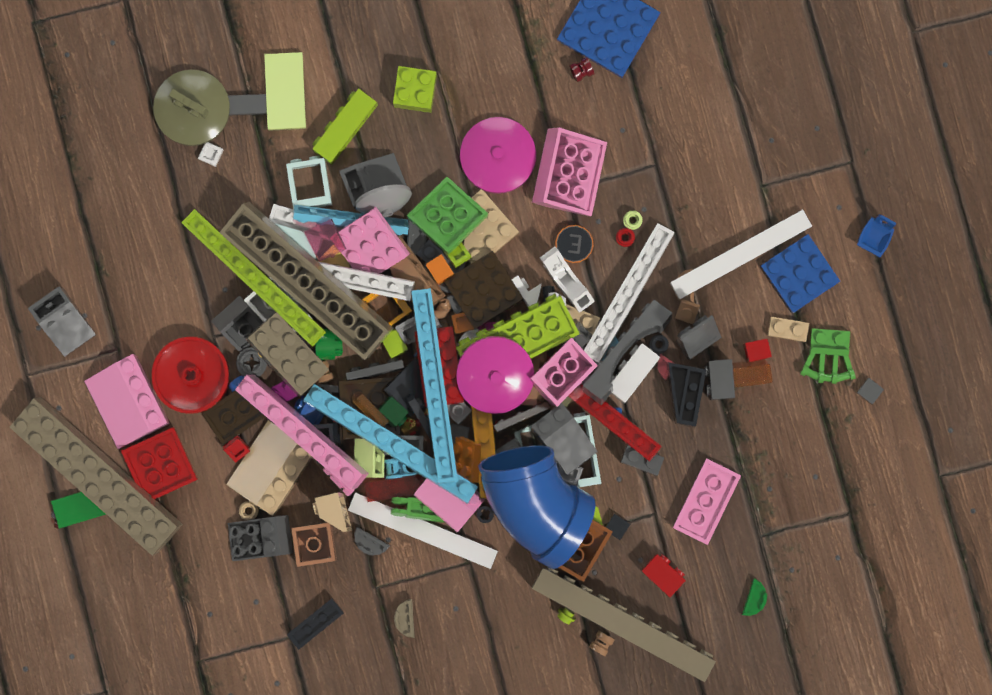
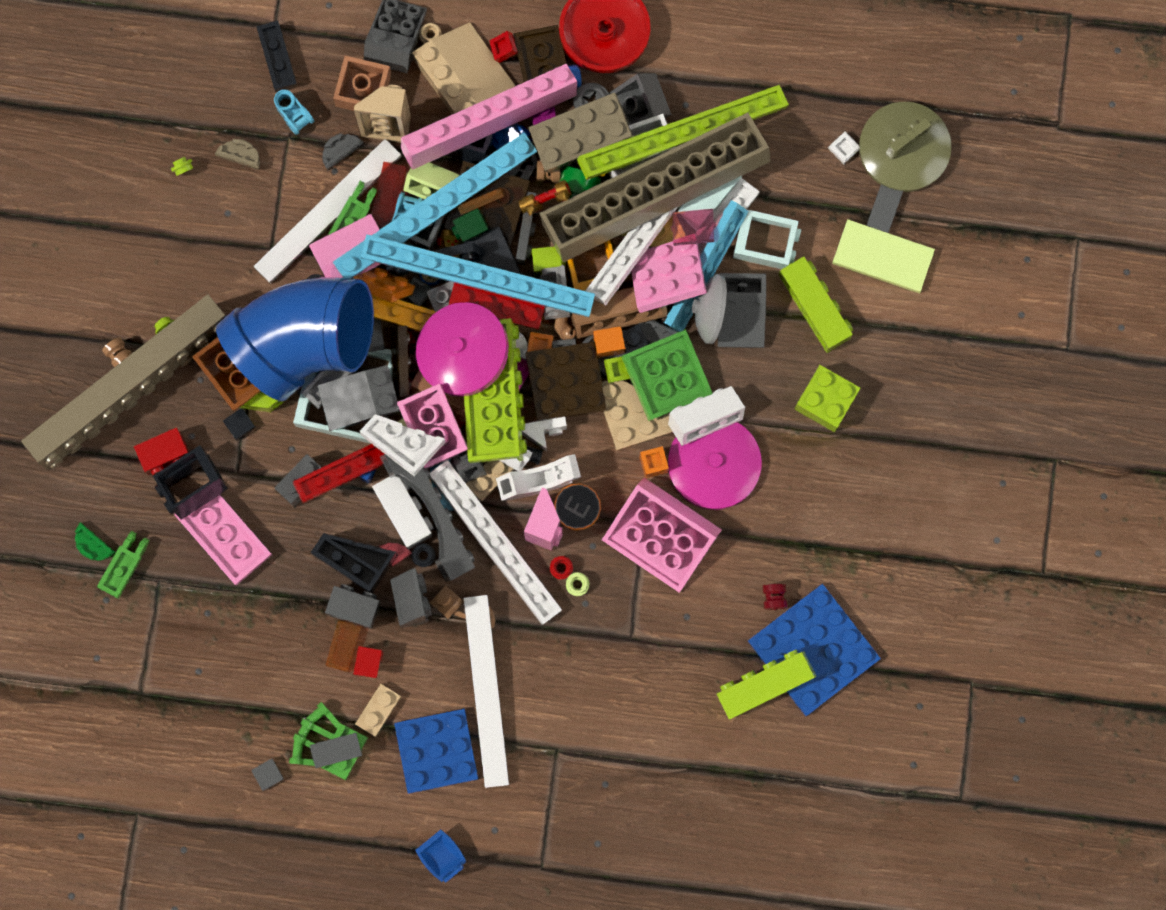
camera: 110 degrees right, 5 degrees down
(356, 369) = (533, 204): none -> pearl gold piece
(356, 589) = (295, 114): none -> medium azure piece
(434, 659) = (182, 166): none -> lime plate
(466, 173) = (706, 415): none -> white brick
(518, 199) = (654, 462): none -> orange panel
(588, 387) = (402, 444): none -> white wing
(600, 260) = (544, 524): none -> bright pink slope
(651, 49) = (766, 684): none -> lime brick
(675, 558) = (179, 470): none -> black window
(763, 567) = (122, 566): none -> bright green hinge
(832, 346) = (335, 750): none -> dark grey tile

